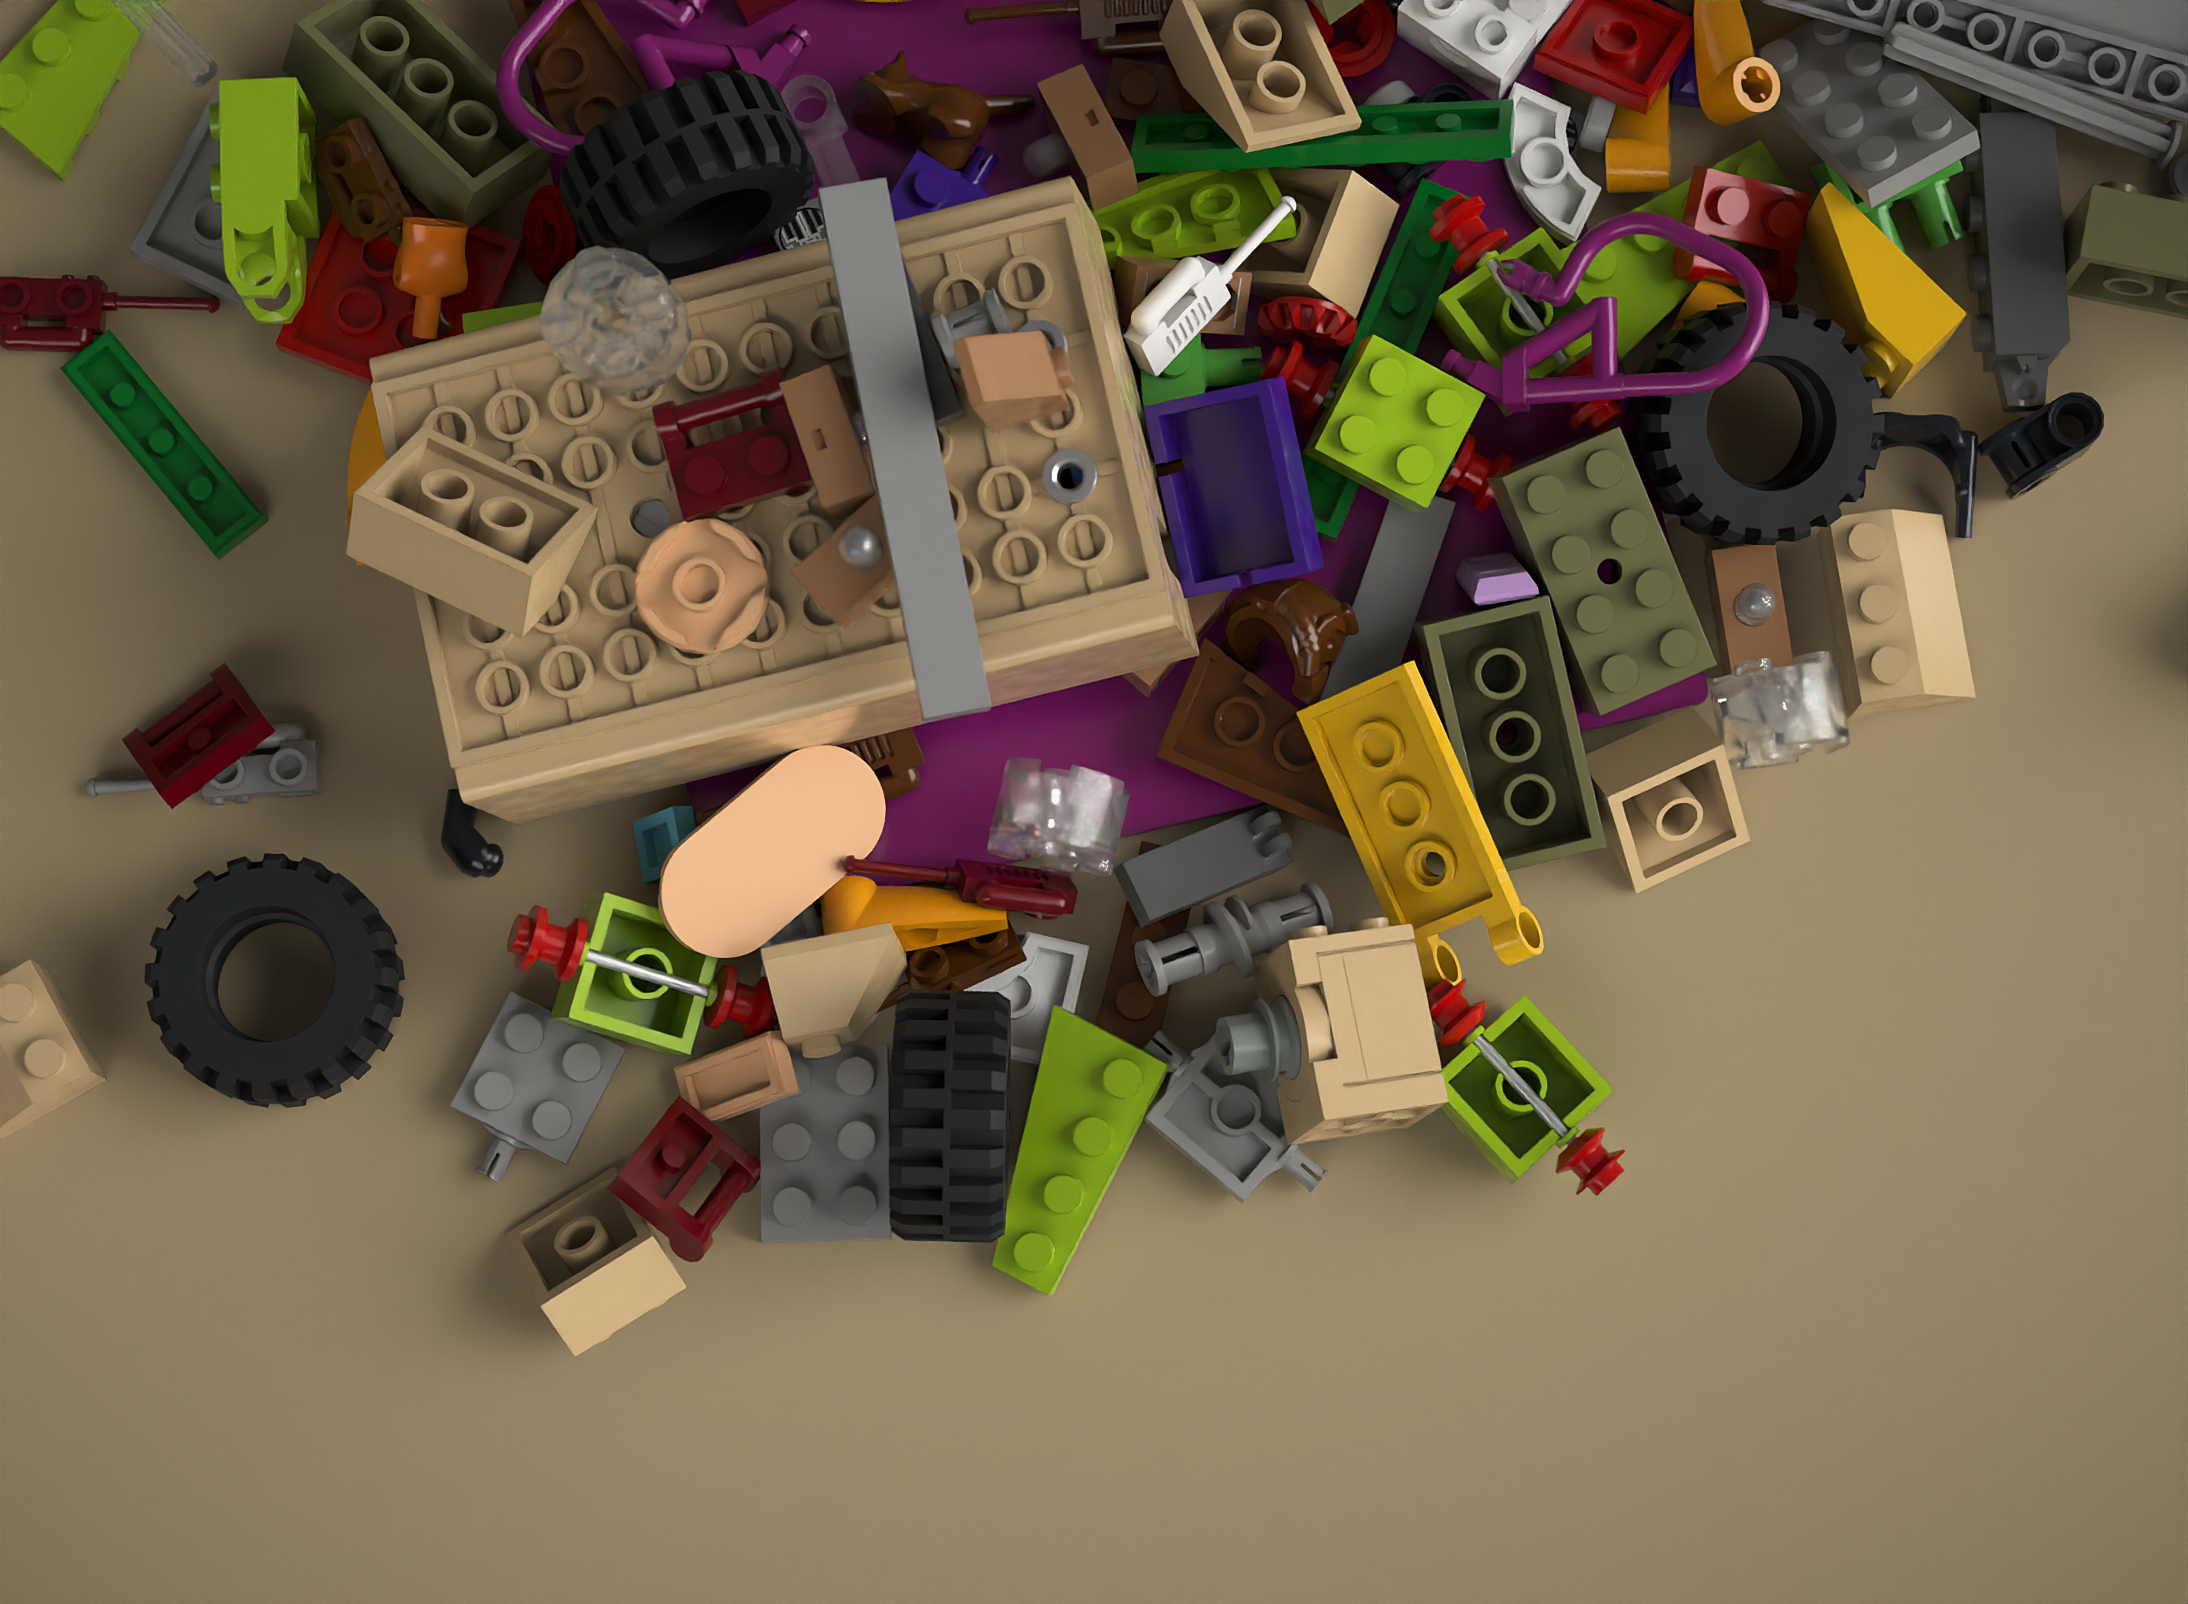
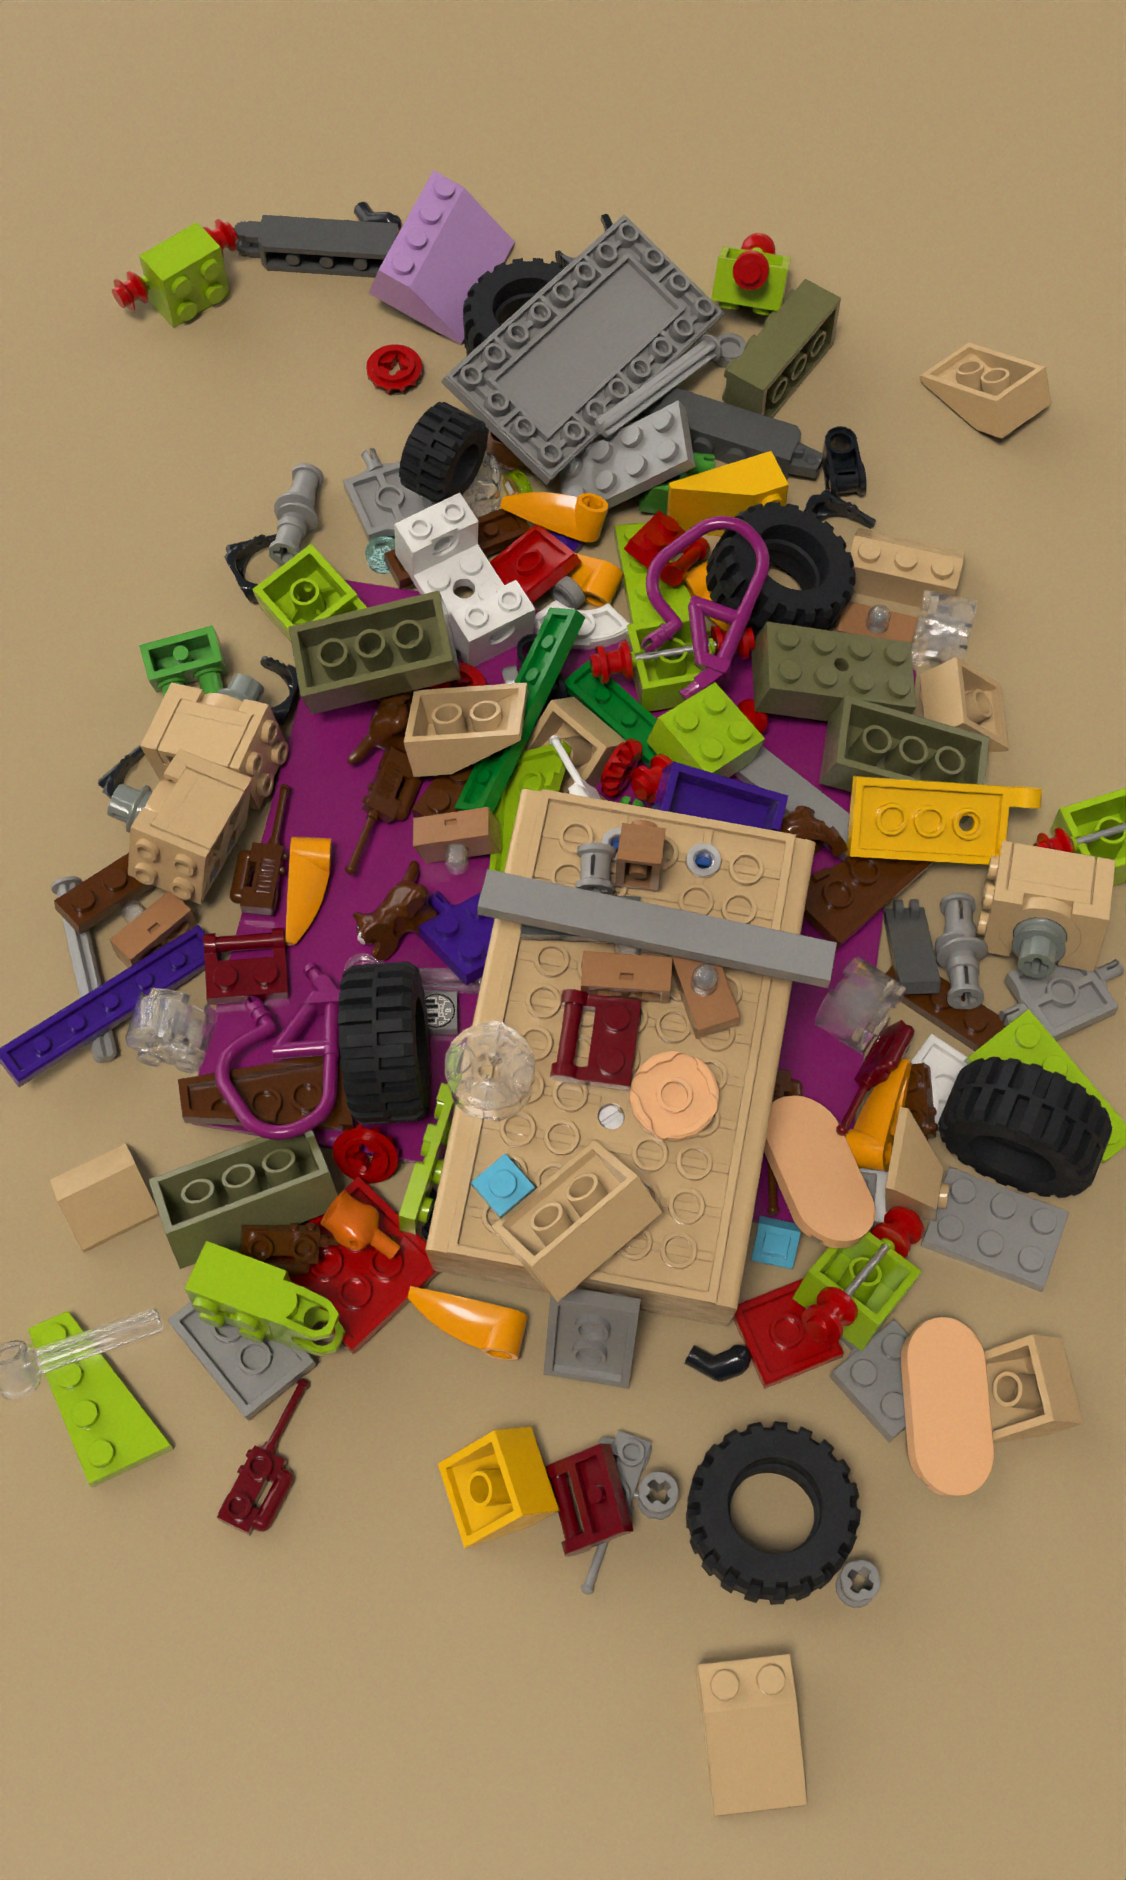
camera: 65 degrees left, 15 degrees down
(164, 444) = (378, 1452): green tile -> none
(175, 615) = (497, 1485): none -> yellow slope
(226, 1115) = (871, 1583): none -> light grey bush
(244, 807) = (658, 1482): none -> light grey bush
(396, 651) = (592, 1337): none -> light grey plate
(481, 415) = (502, 1186): none -> medium azure plate
(519, 1162) = (947, 1407): none -> light nougat tile
(546, 874) = (777, 1338): none -> red tile
(670, 1164) = (991, 1317): dark red plate -> none
(738, 1077) = (942, 1257): light nougat tile -> none
(1495, 579) = (814, 729): lavender tile -> none

